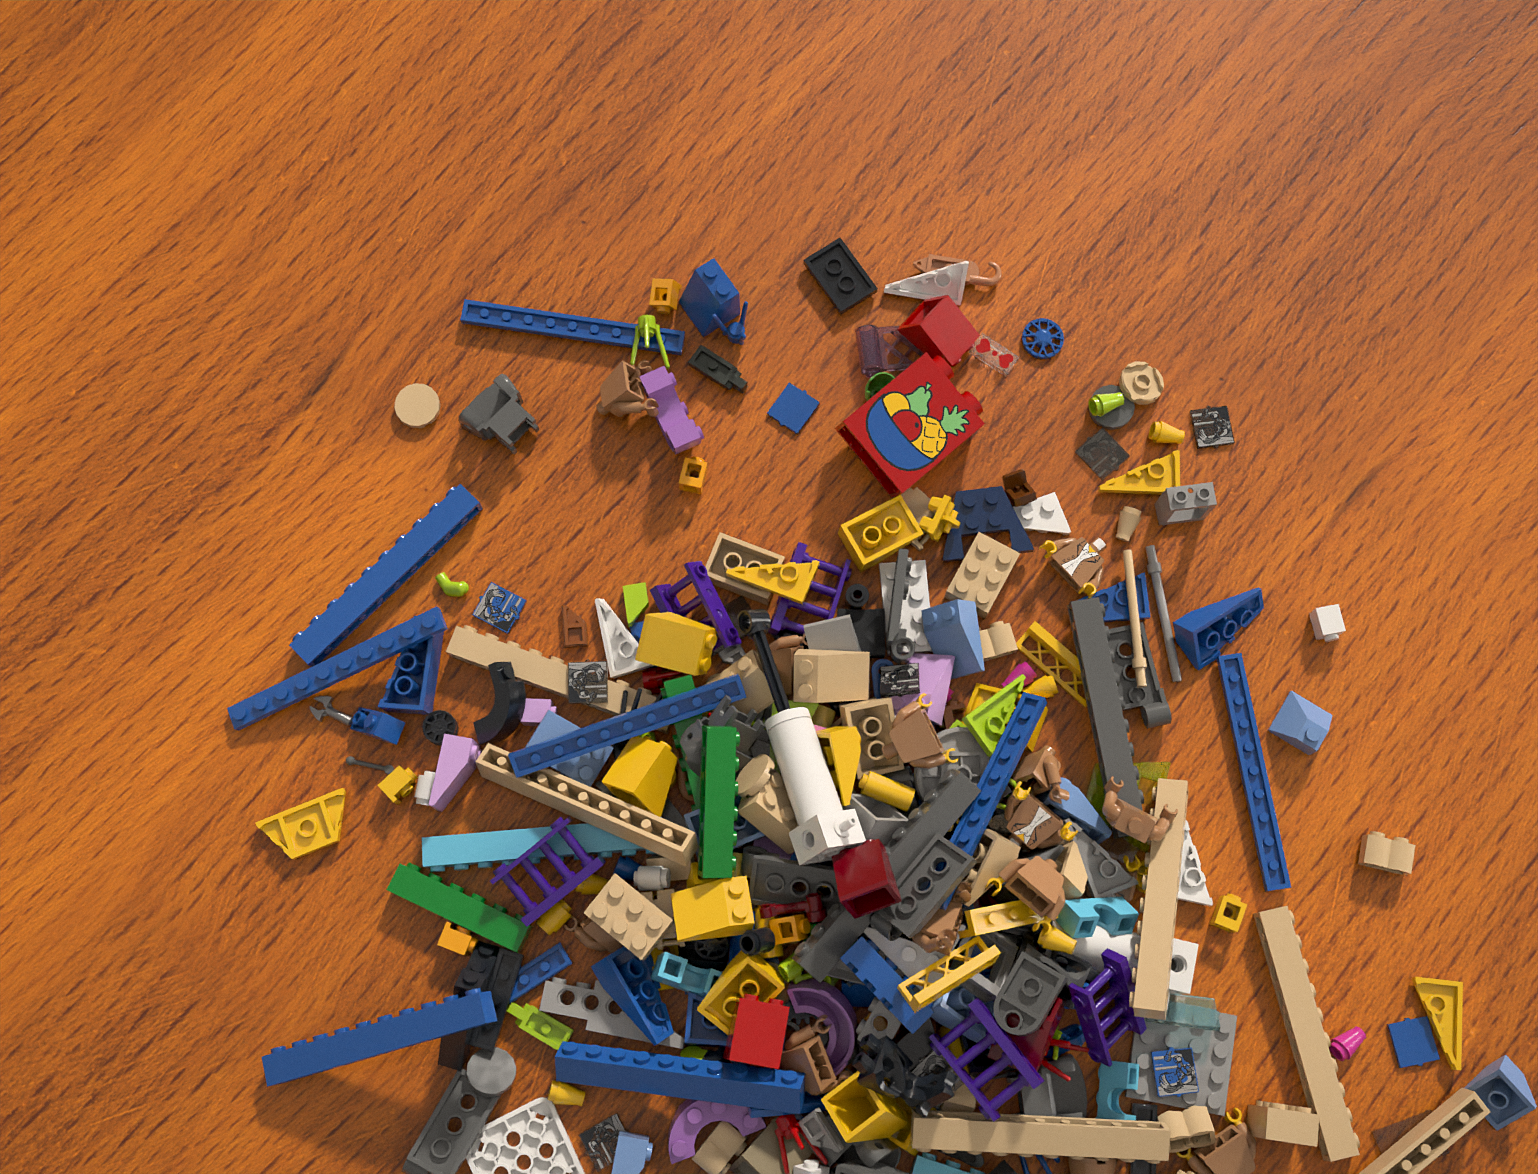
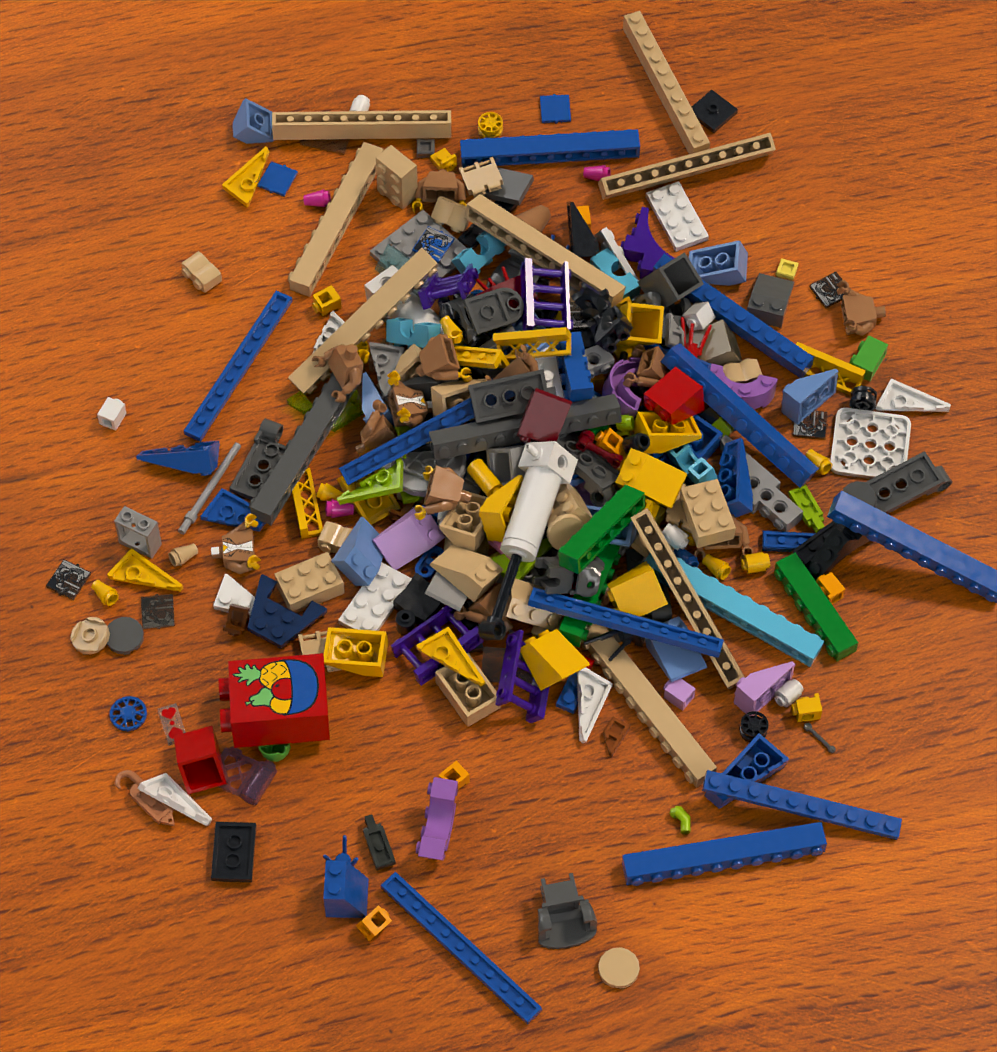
camera: 145 degrees left, 15 degrees down
(307, 825) = (888, 723): yellow wing -> none
(330, 711) = (824, 788): flat silver bar -> none
(377, 725) = (799, 755): blue slope -> none
(499, 607) = (657, 784): piece -> none
(507, 708) = (710, 696): black arch -> none
(569, 879) = (743, 563): dark purple fence -> none
(588, 682) = (631, 682): piece -> none
(624, 392) = (460, 864): medium nougat torso -> none
(635, 601) = (558, 722): lime tile -> none
(647, 327) = (406, 899): lime plant -> none
(793, 408) = (344, 783): blue piece -> none
(896, 635) = (384, 591): dark grey hinge -> none
(899, 680) = (420, 547): piece -> none
(943, 520) = (300, 635): yellow hips -> none
(1104, 403) = (131, 634): lime cone -> none
(1139, 662) = (255, 463): tan bar -> none
(1301, 723) = (182, 370): medium blue slope -> none

